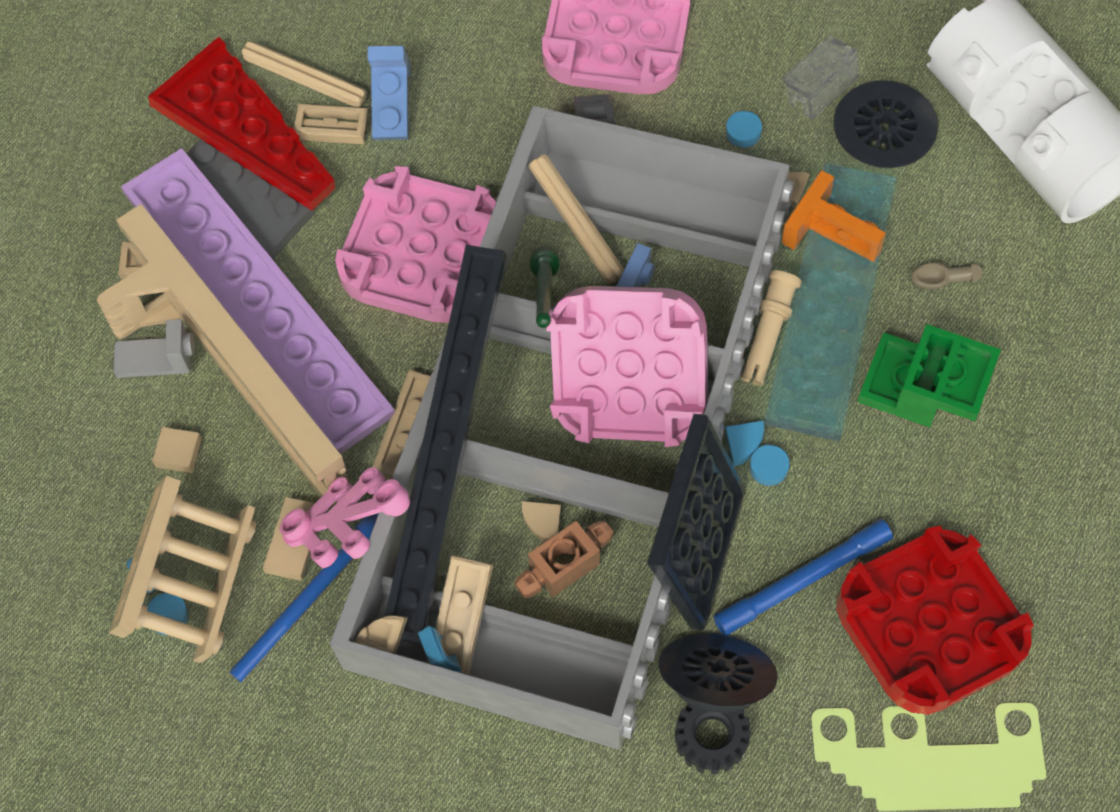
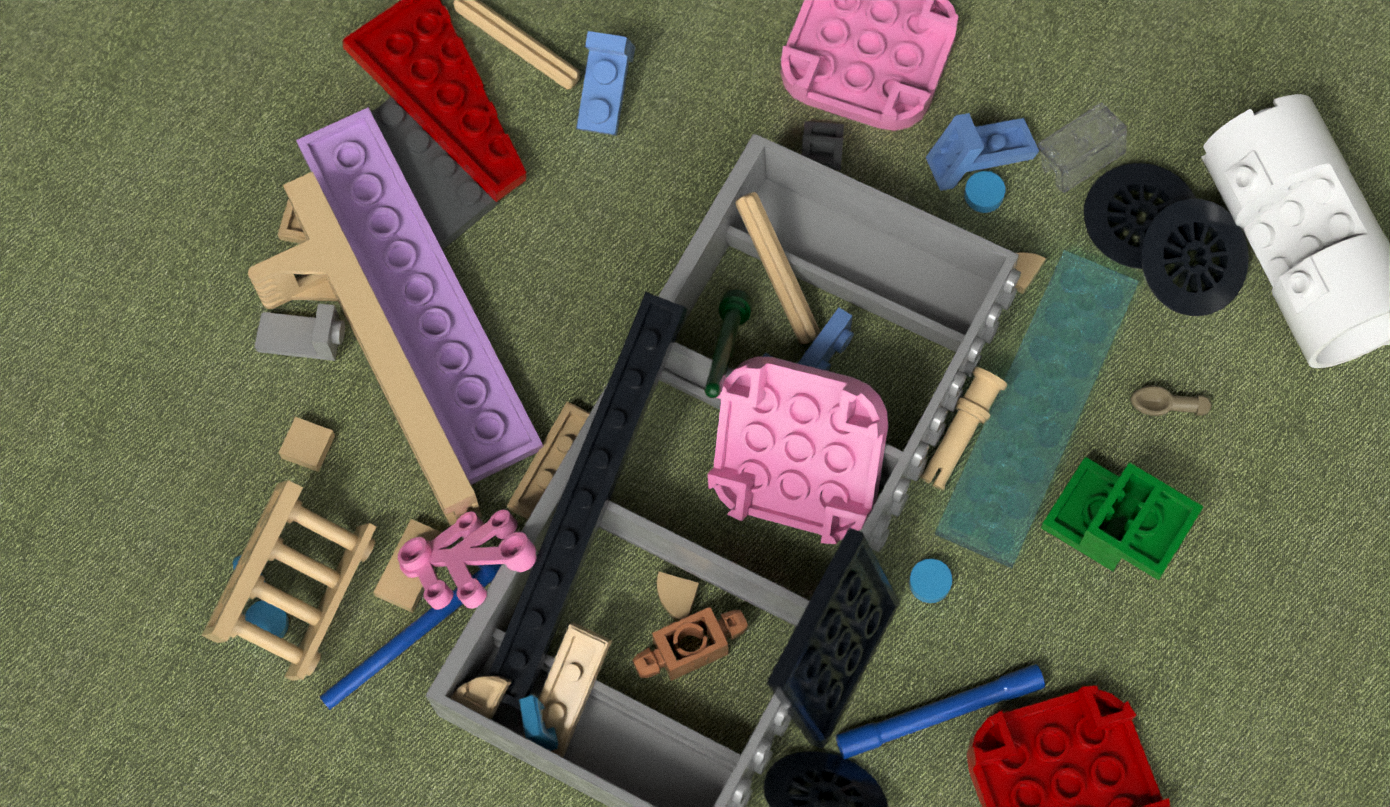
camera: 10 degrees right, 5 degrees up
(329, 128) = (532, 116): tan tile -> none
(411, 243) = (598, 258): bright pink tile -> none
(726, 91) = (974, 148): none -> medium blue bracket
(743, 440) = (909, 548): dark azure tile -> none
(831, 222) = (1054, 321): orange bracket -> none
(970, 140) = (1231, 251): none -> black piece

